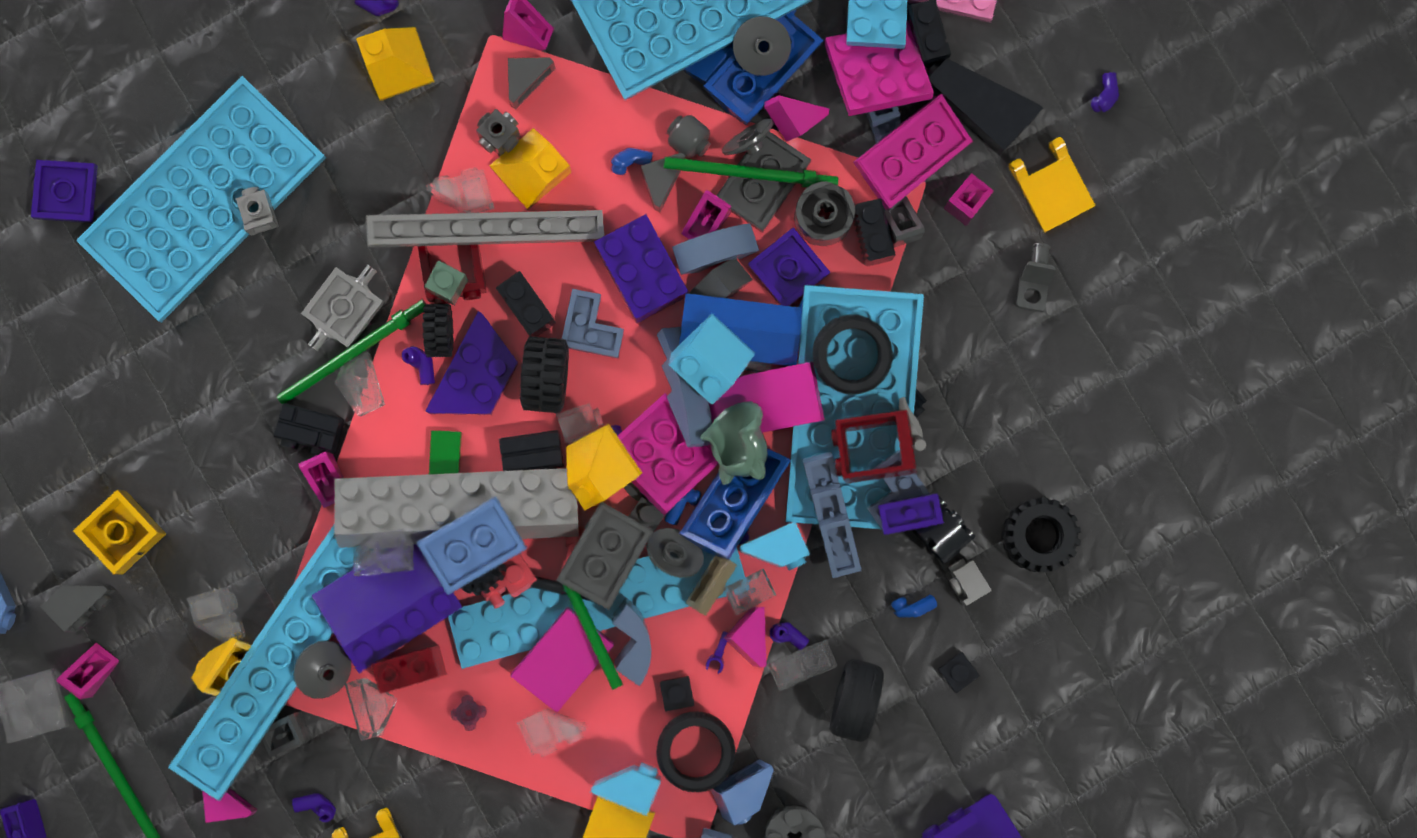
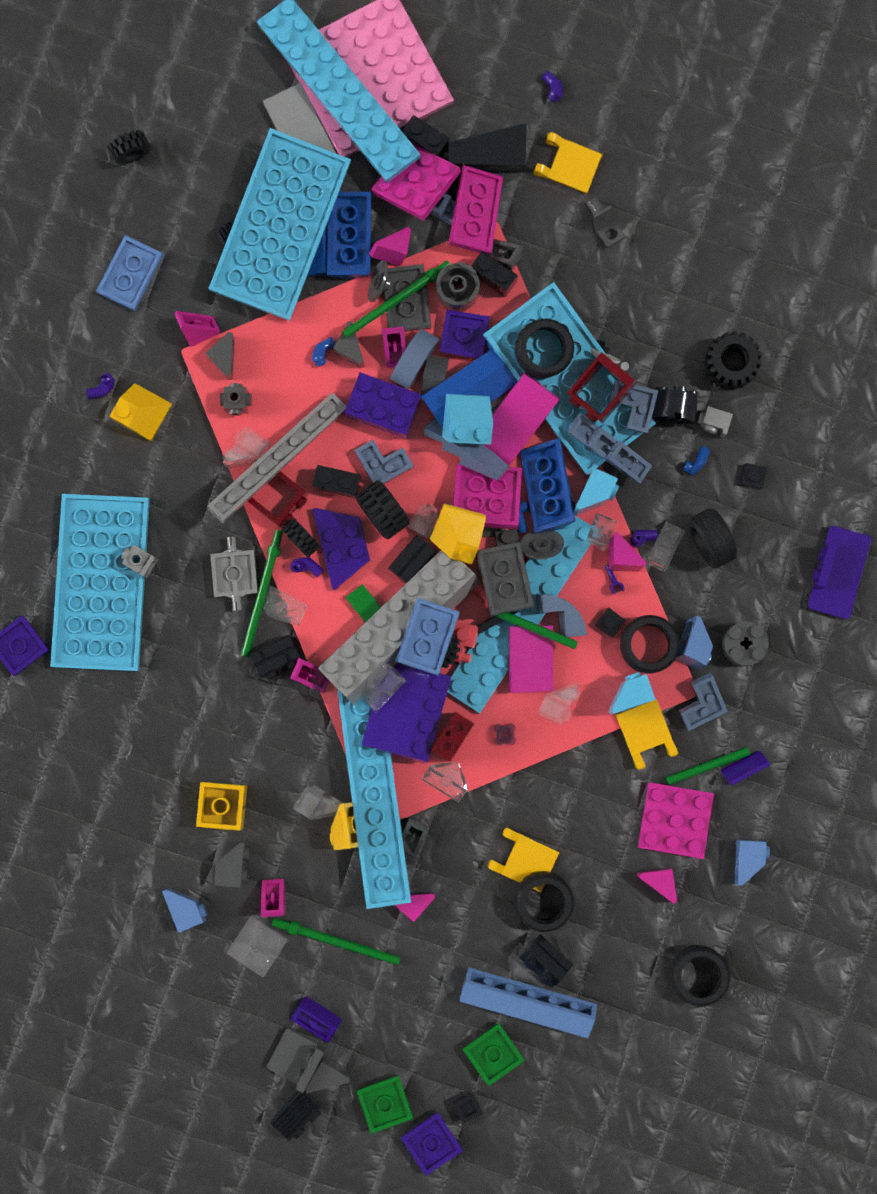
camera: 30 degrees left, 0 degrees up
(314, 662) = (396, 782): dark grey dish -> none
(317, 803) = (465, 859): dark purple arm -> none
(446, 283) = (283, 505): sand green brick -> none
(531, 168) = (271, 403): yellow slope -> none
(688, 136) = (343, 309): dark grey head -> none
(711, 584) = (577, 544): dark tan plate -> none
(738, 442) = (523, 452): sand green hair -> none
(747, 41) = (330, 225): dark grey dish -> none
(910, 513) = (653, 408): dark purple plate -> none
(968, 199) = (529, 211): dark pink slope -> none

